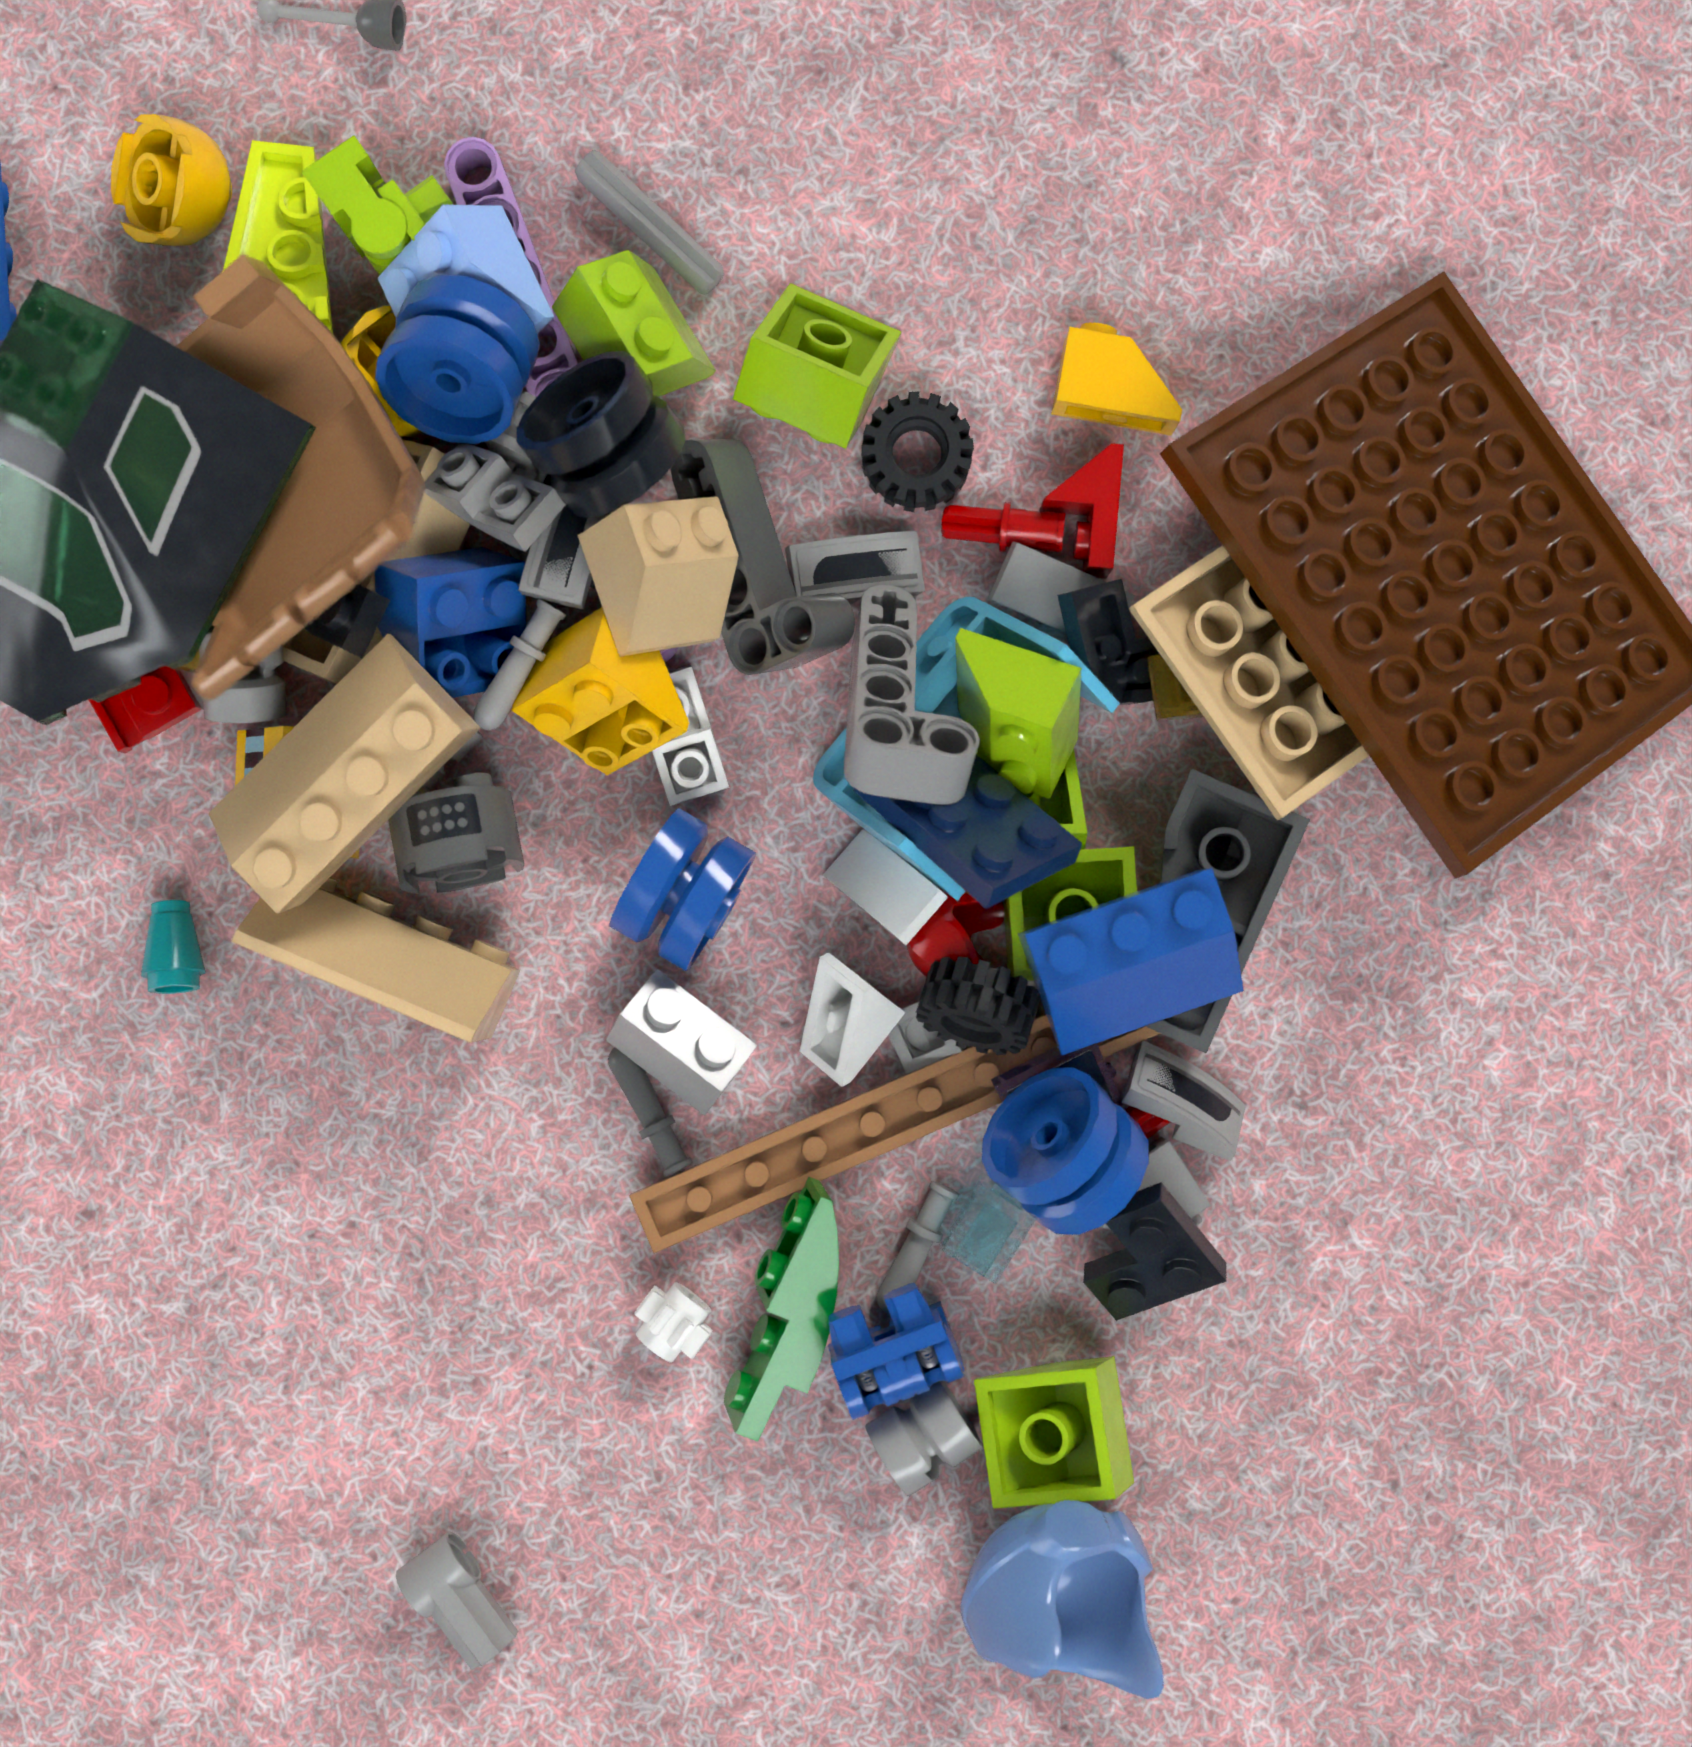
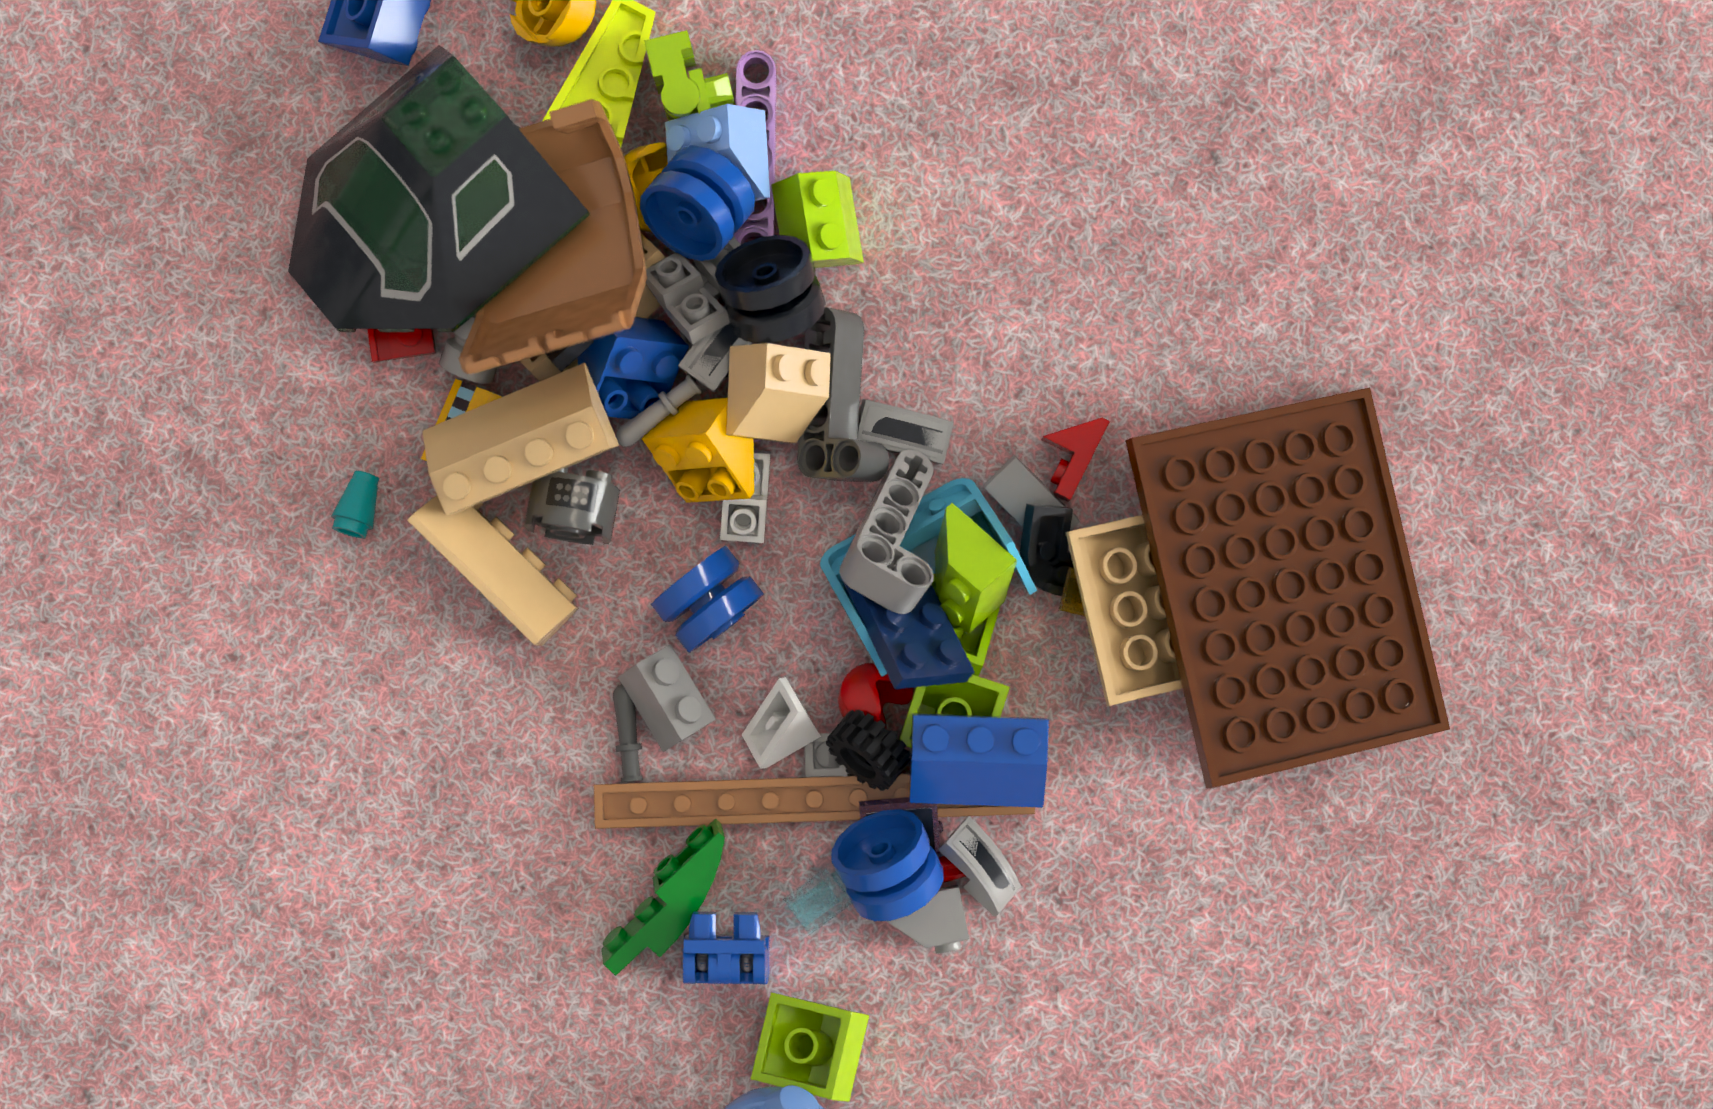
camera: 20 degrees right, 0 degrees up
(449, 1588) = (376, 996): light grey piece -> none
(649, 222) = (858, 147): light grey axle -> none
(673, 1322) = (590, 878): white gear -> none
(815, 365) = (931, 286): lime slope -> none
(885, 886) = (839, 648): white slope -> none
(916, 415) = (974, 343): black tyre -> none
(919, 1241) = (772, 889): light grey piece -> none
(923, 1437) = (724, 1016): light grey wheel -> none
(1004, 526) = (1012, 442): red axle -> none
(1111, 383) = (1120, 374): yellow slope -> none
(1161, 1260) = (923, 962): black plate -> none
(1249, 856) = (1077, 730): dark grey wedge -> none

